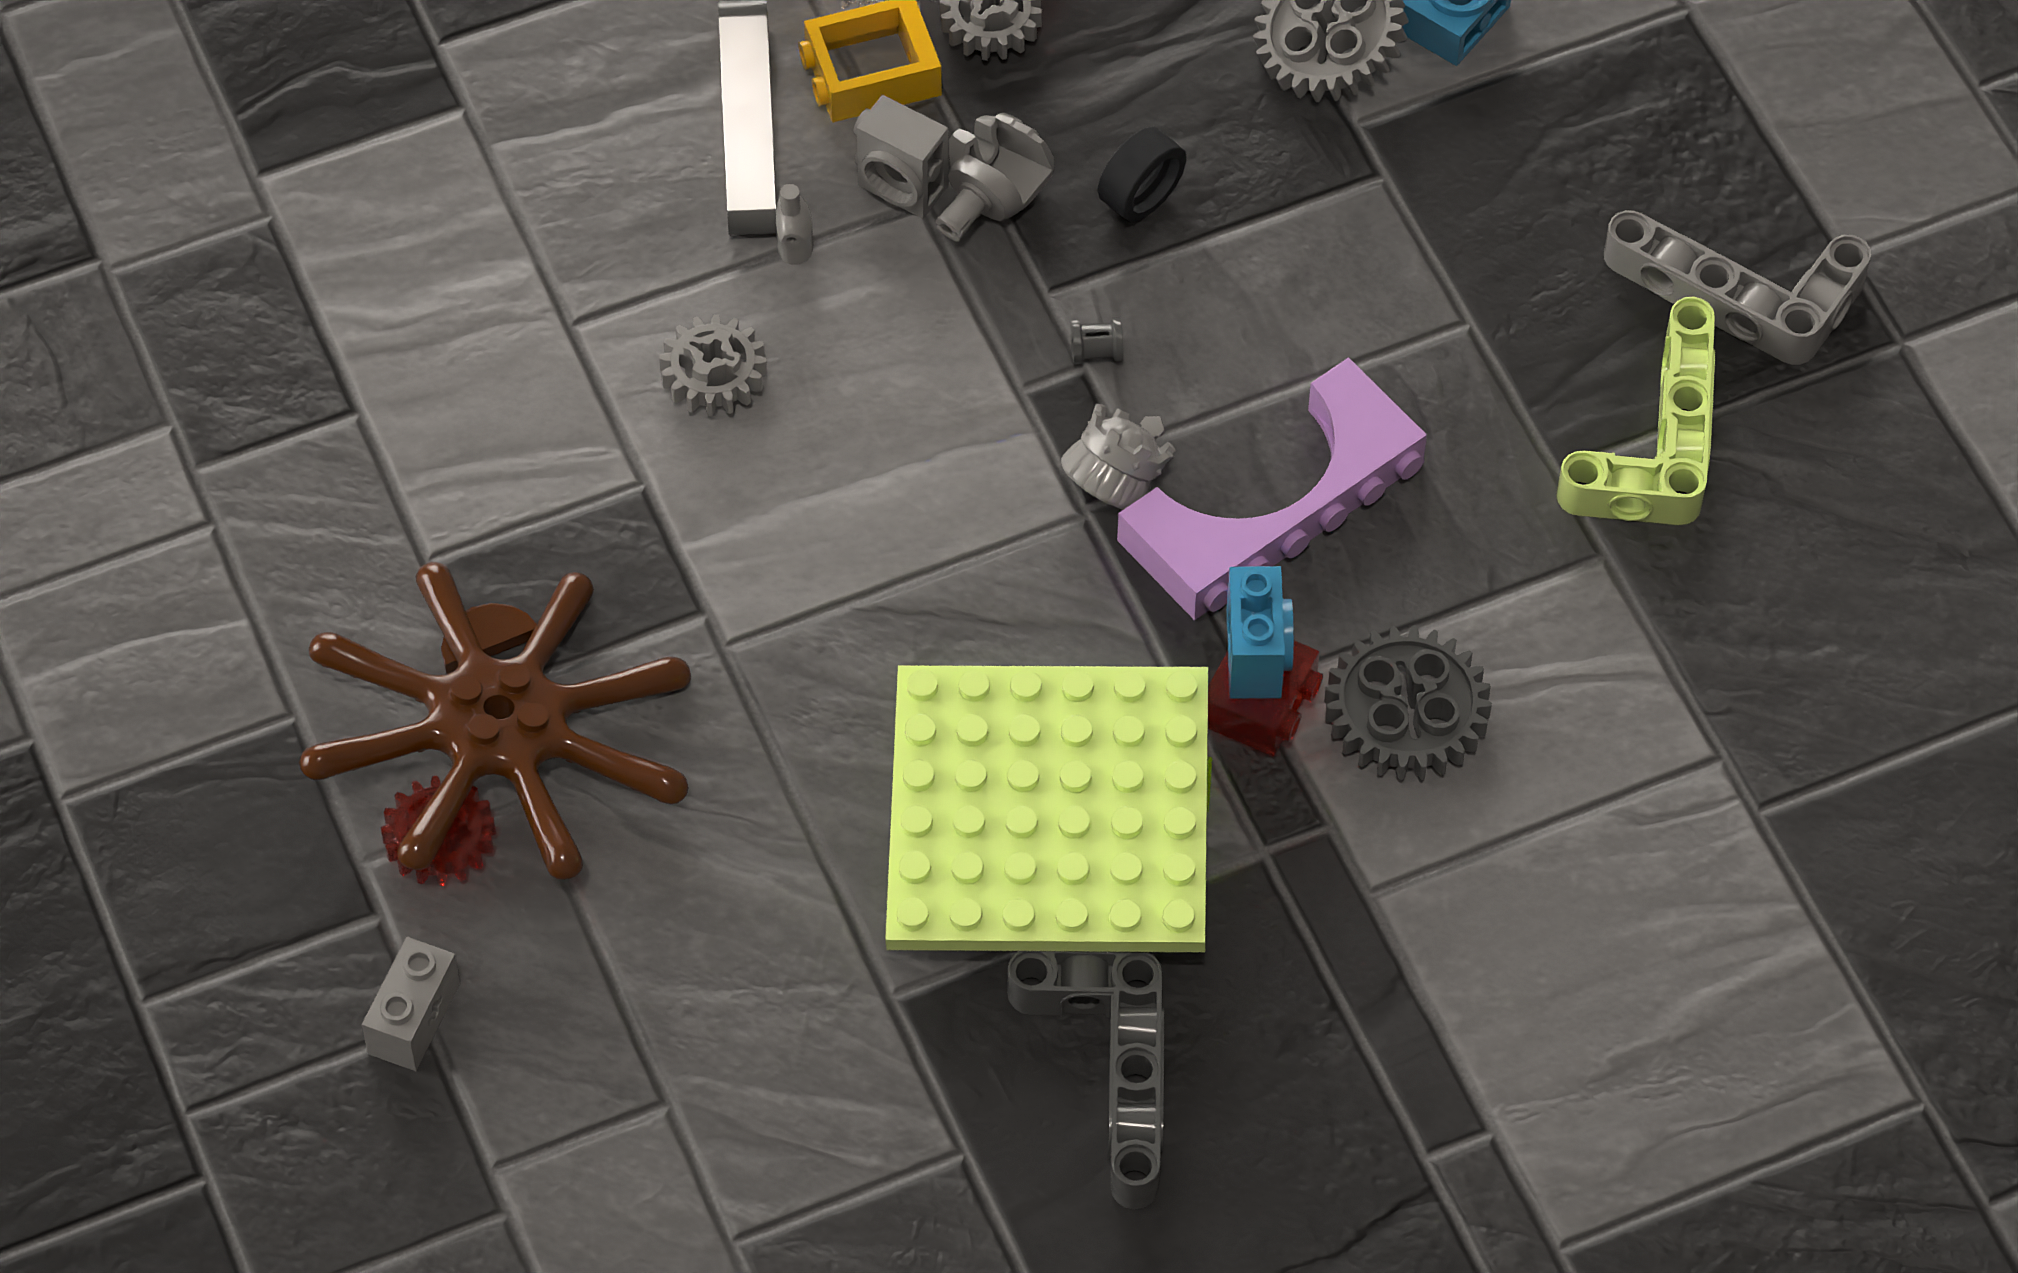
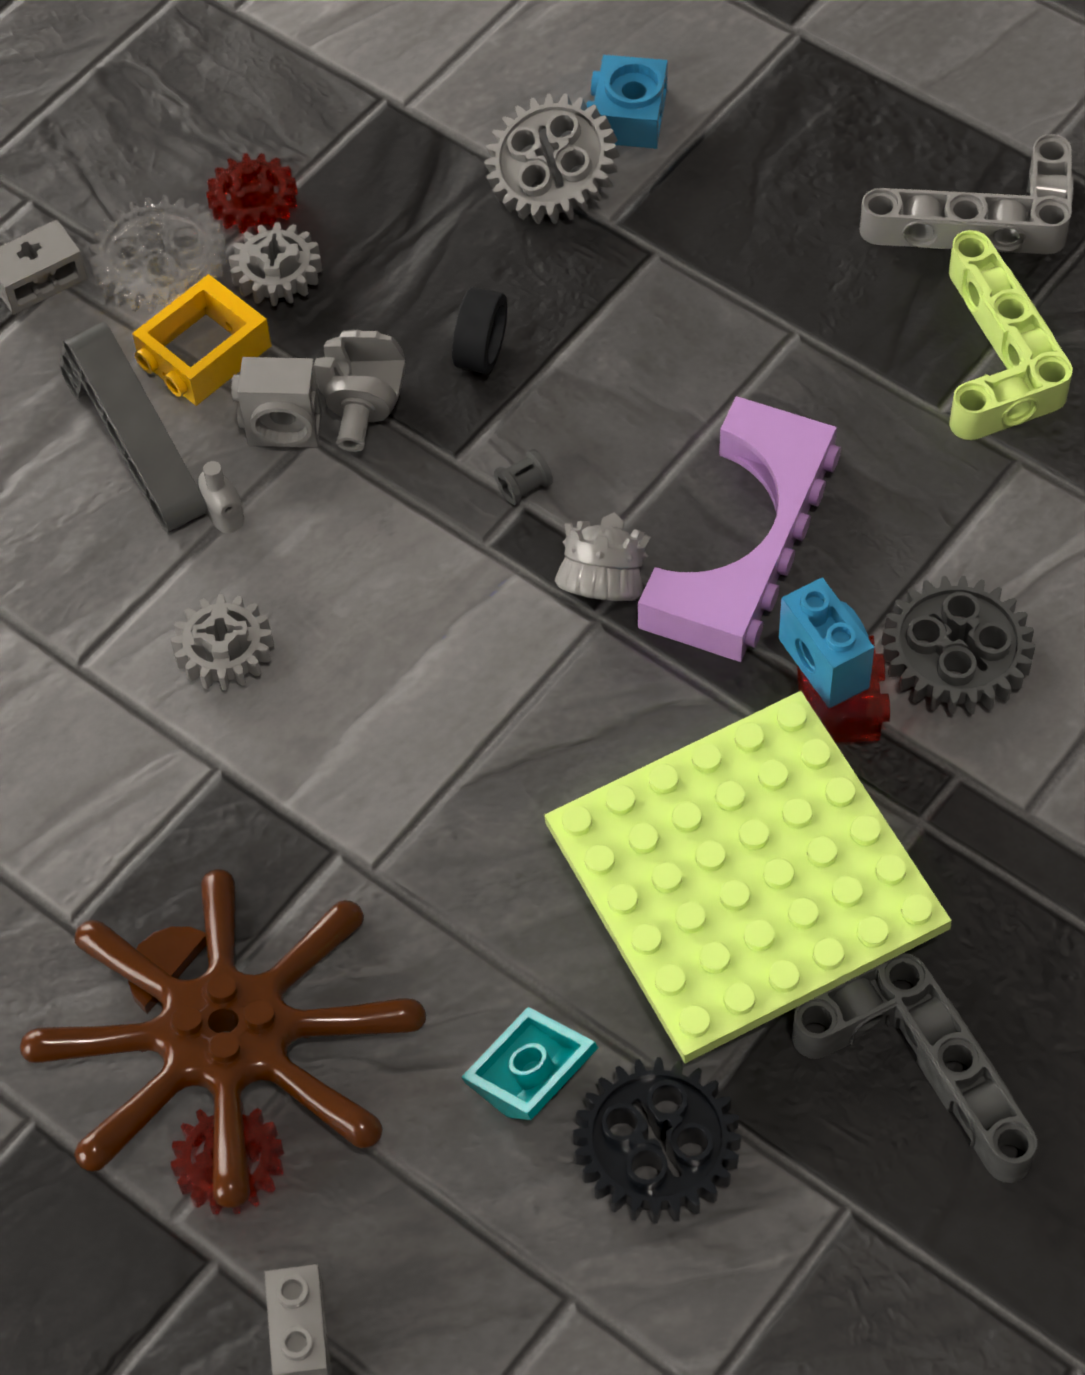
camera: 25 degrees left, 0 degrees up
(752, 882) = (528, 1064): none -> teal slope
(775, 1004) = (615, 1157): none -> black gear

